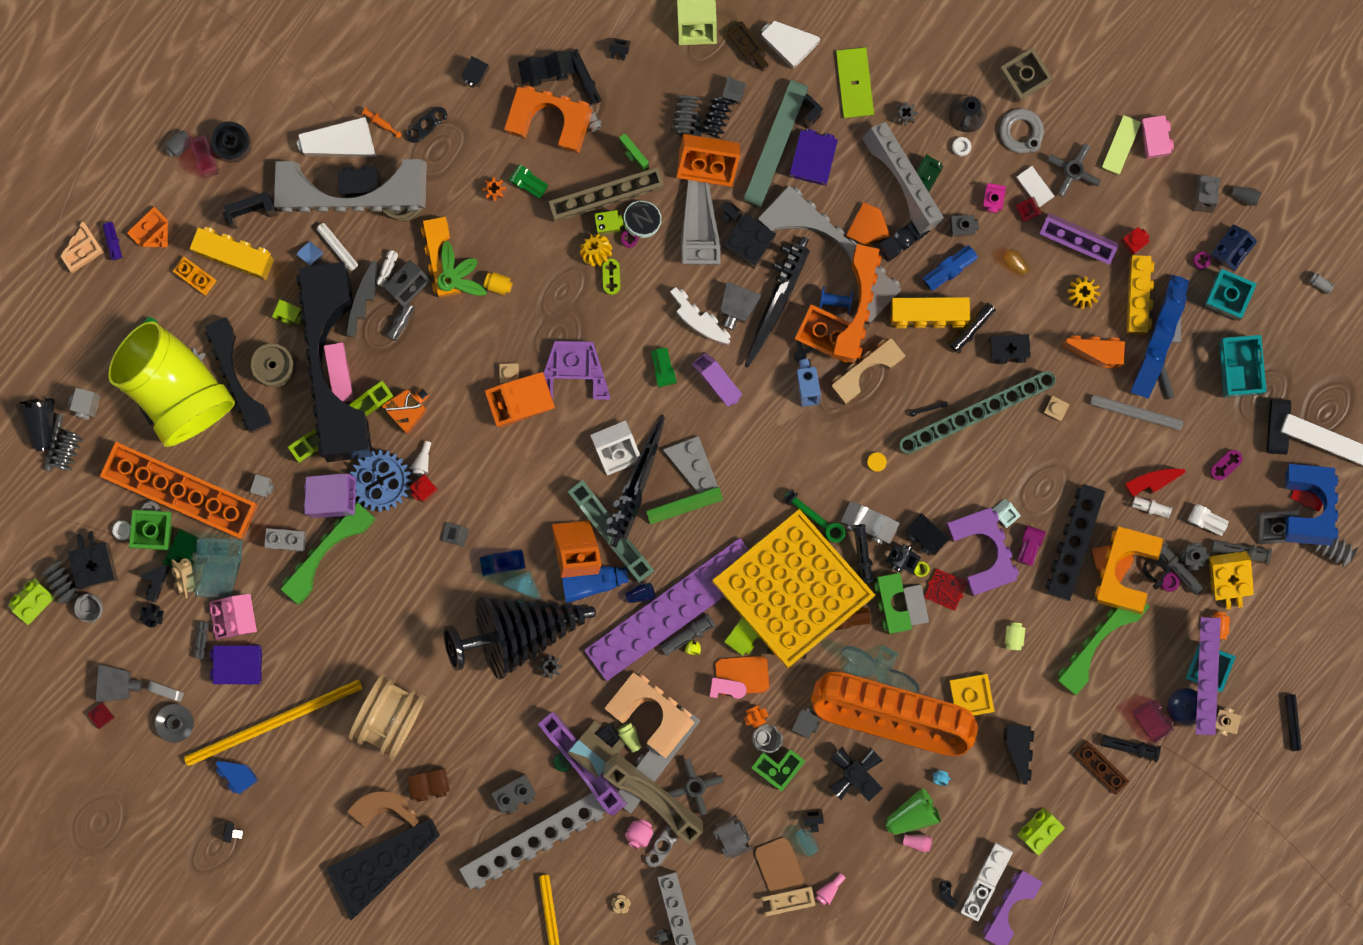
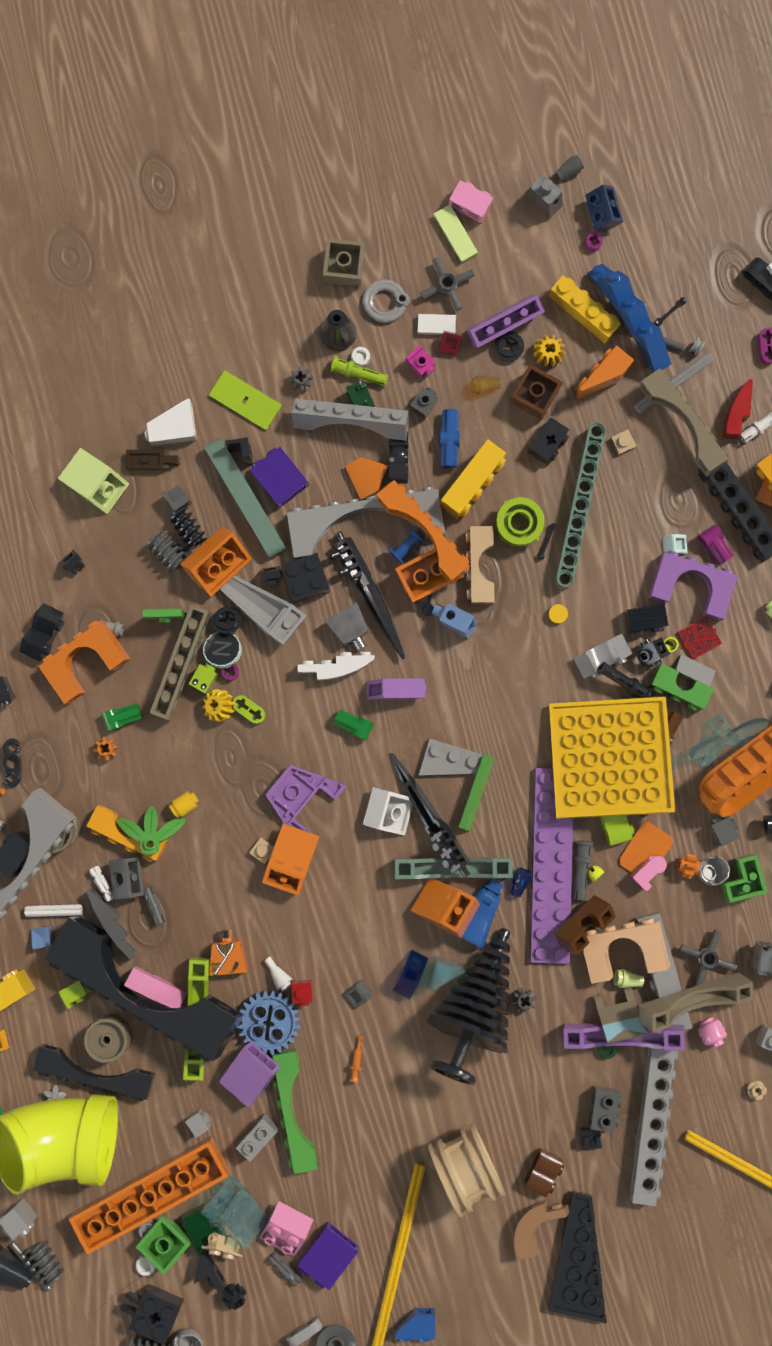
camera: 55 degrees left, 0 degrees up
(401, 573) = (356, 1061): none -> orange piece
(483, 802) = (590, 1139): none -> black tile
(585, 79) = (75, 608): black pin -> none
(608, 735) = (613, 995): black tile -> none
(655, 851) = (741, 1026): light grey piece -> none
(659, 668) = (593, 913): none -> reddish brown arch
(668, 197) = (220, 617): none -> black gear
(792, 498) = (535, 702): green piece -> none
(936, 363) = (524, 507): none -> lime piece
(944, 146) = (350, 369): none -> lime pin
(966, 334) = (510, 467): black pin -> none
(1040, 307) = (536, 392): none -> reddish brown brick
(1071, 256) = (512, 338): none -> black gear
(1118, 406) = (661, 391): none -> dark tan arch
(1135, 240) = (540, 279): red brick -> none
(1178, 362) = (659, 321): none -> black hinge
(1180, 408) = (697, 346): none -> light grey bush
(1230, 294) = (639, 239): teal brick -> none
(1242, 366) = (701, 274): teal piece -> none
(1321, 283) = (682, 164): light grey pin -> none

